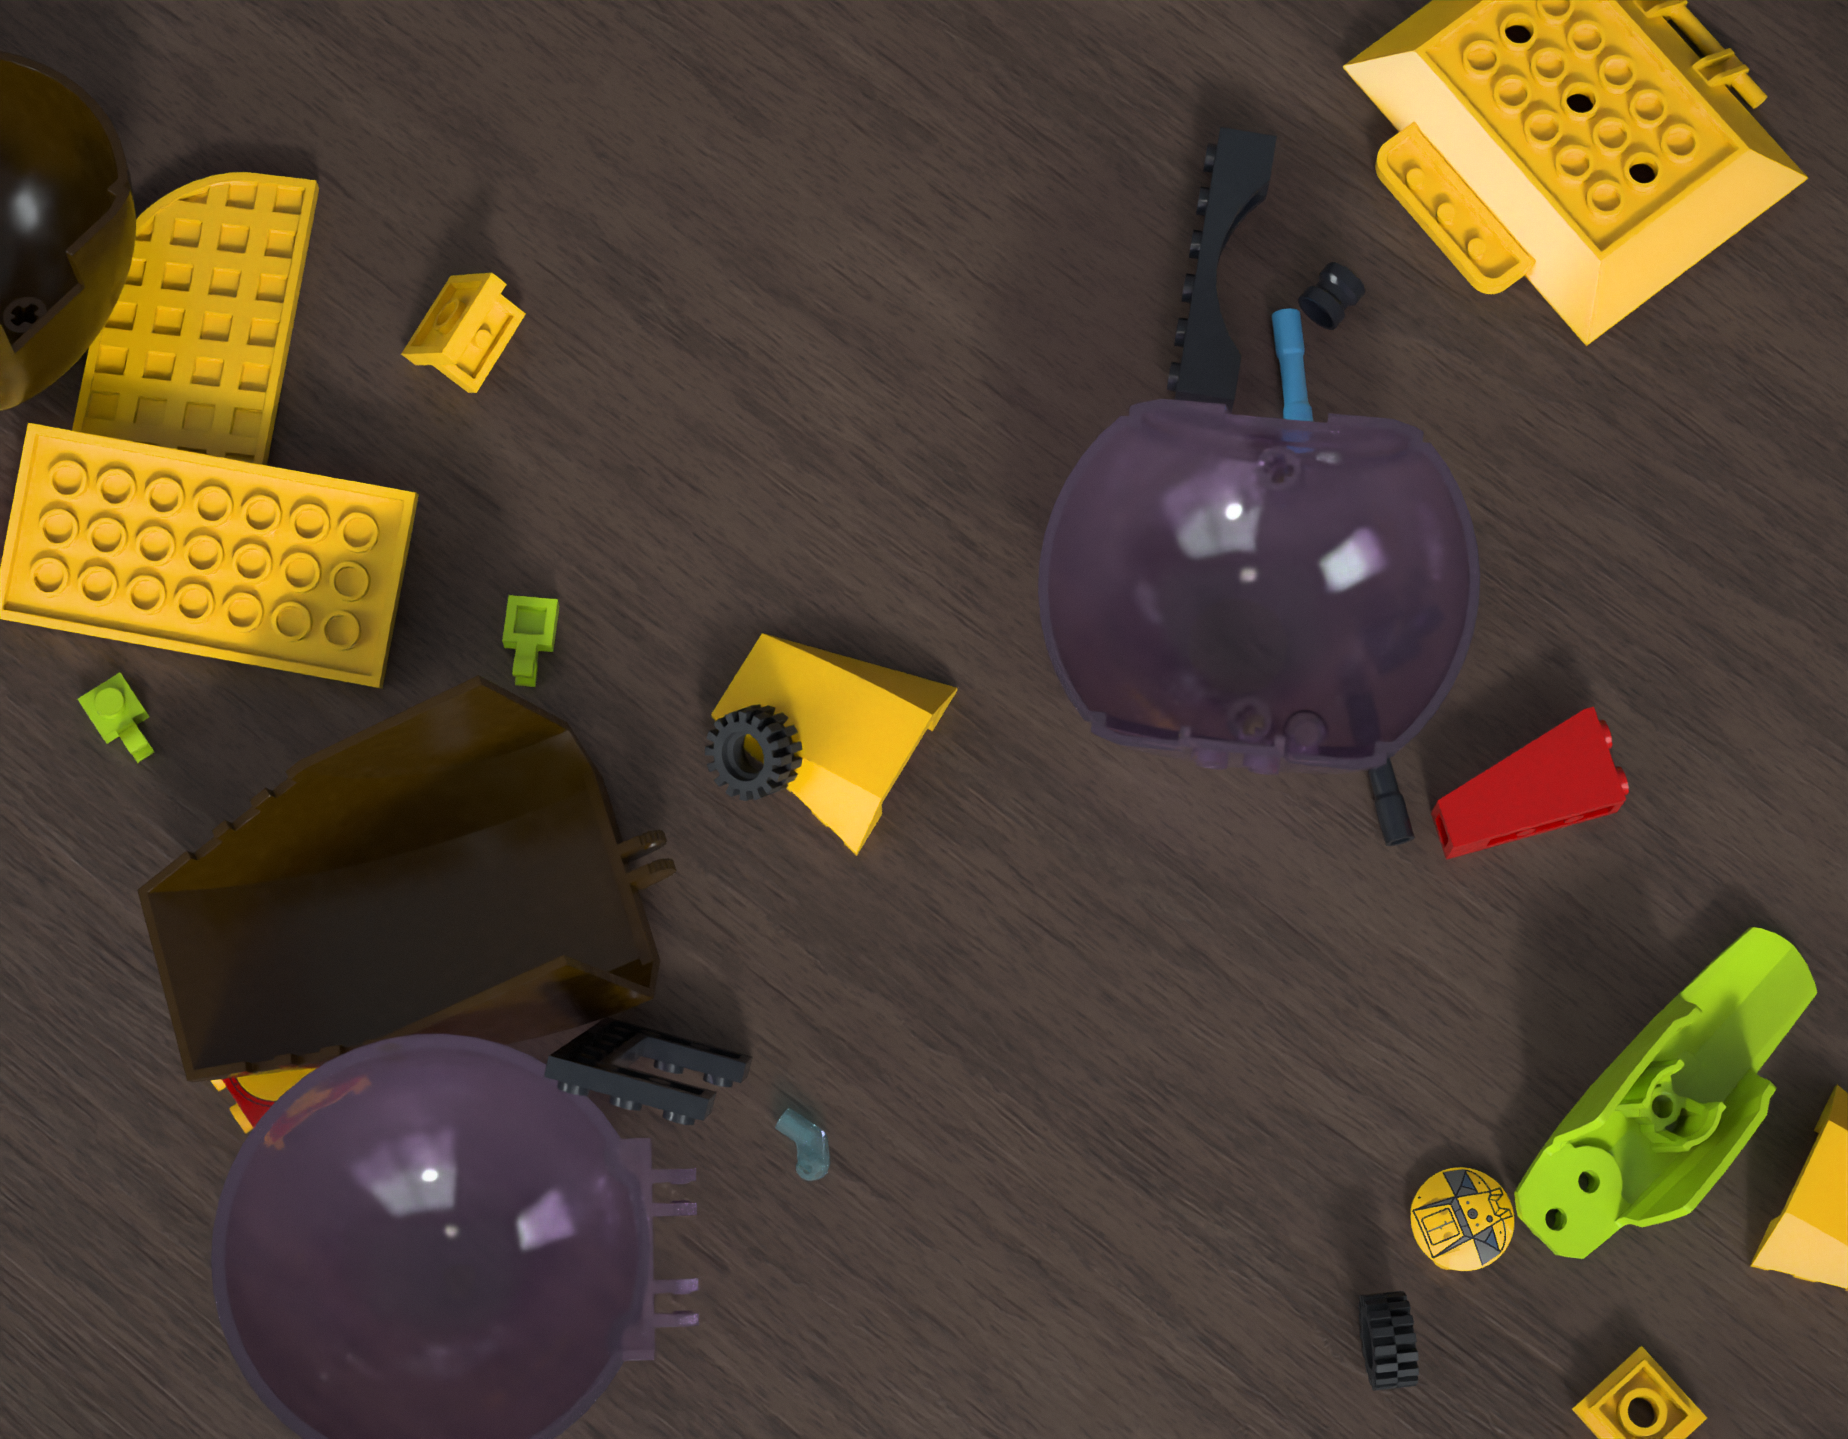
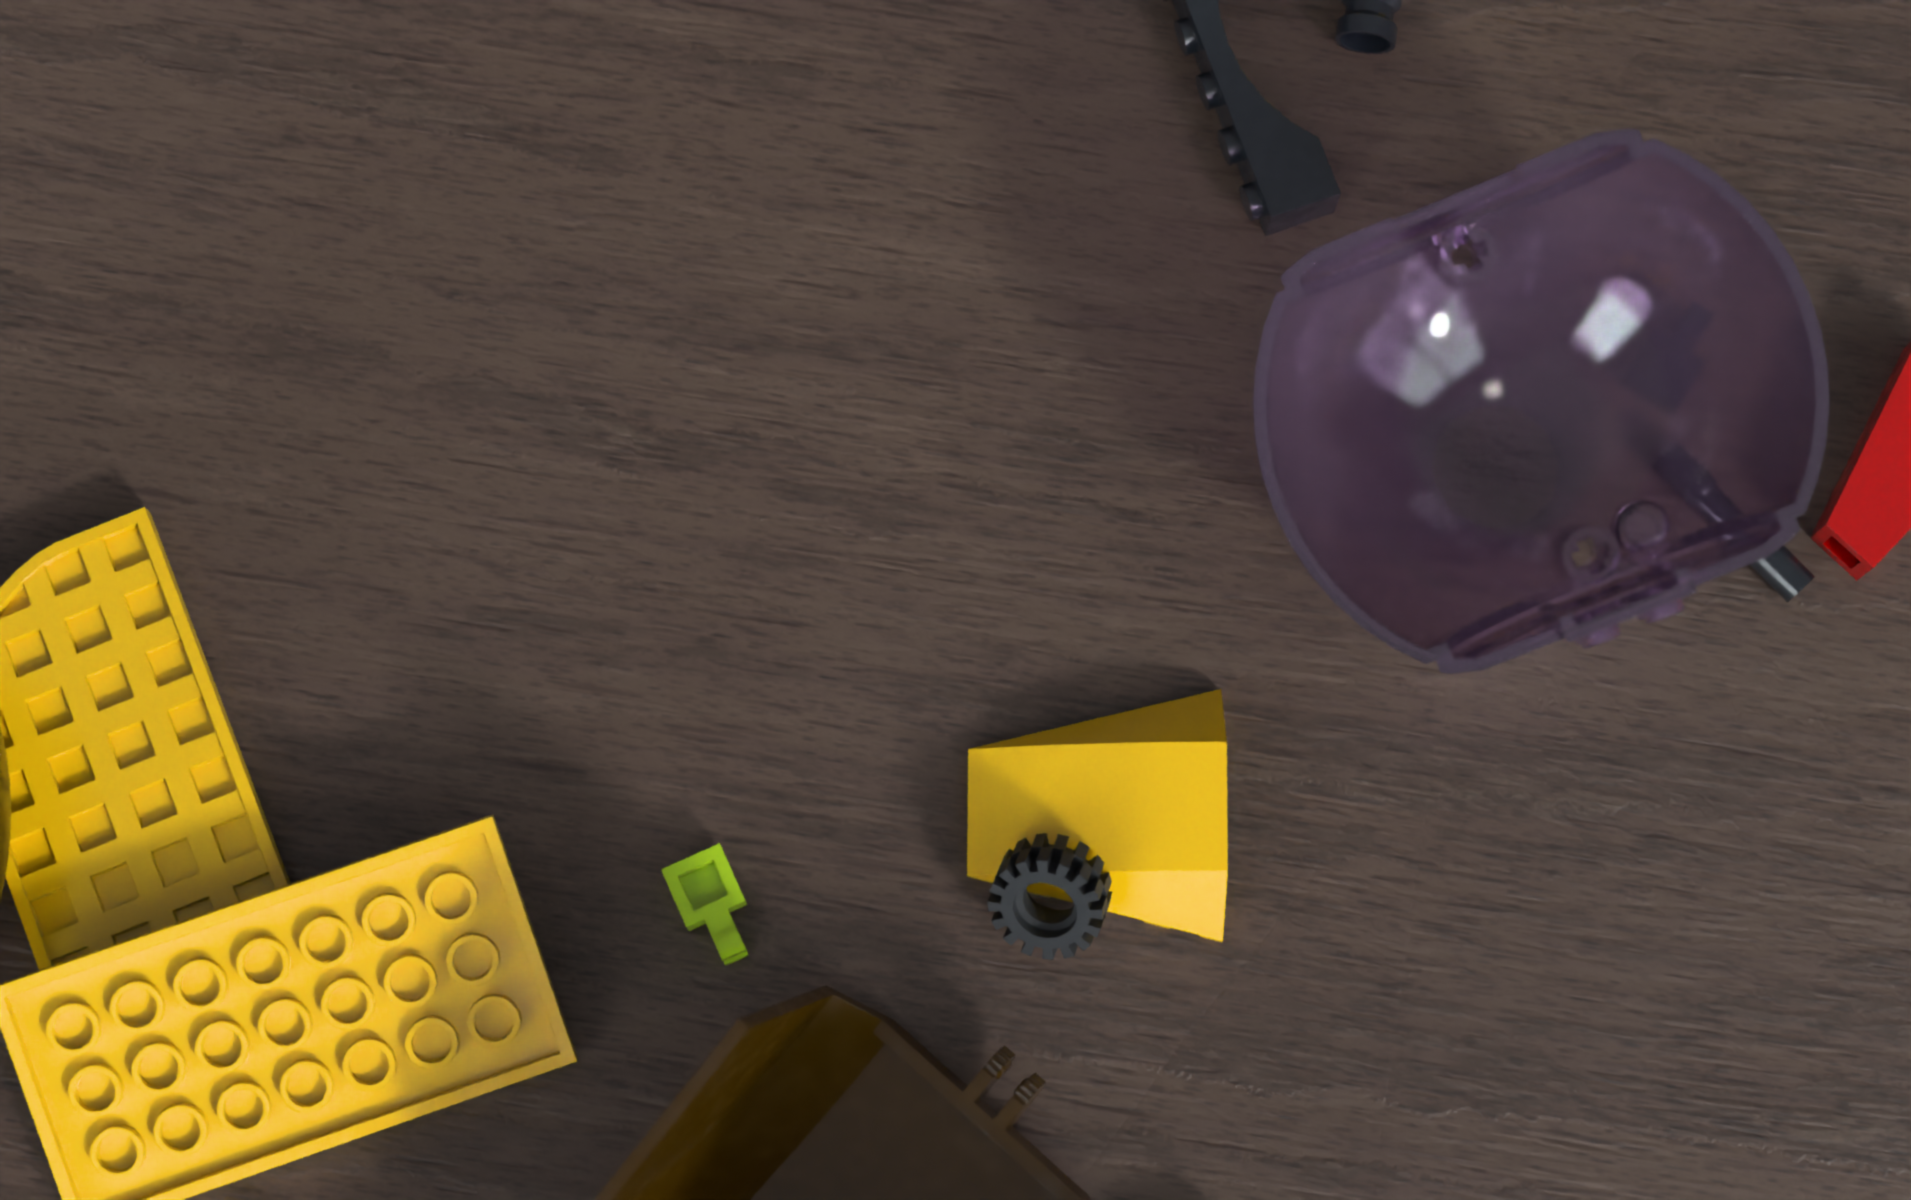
camera: 30 degrees left, 5 degrees up
(465, 329) = (422, 587): yellow bracket -> none
(1290, 352) = (1359, 102): dark azure piece -> none

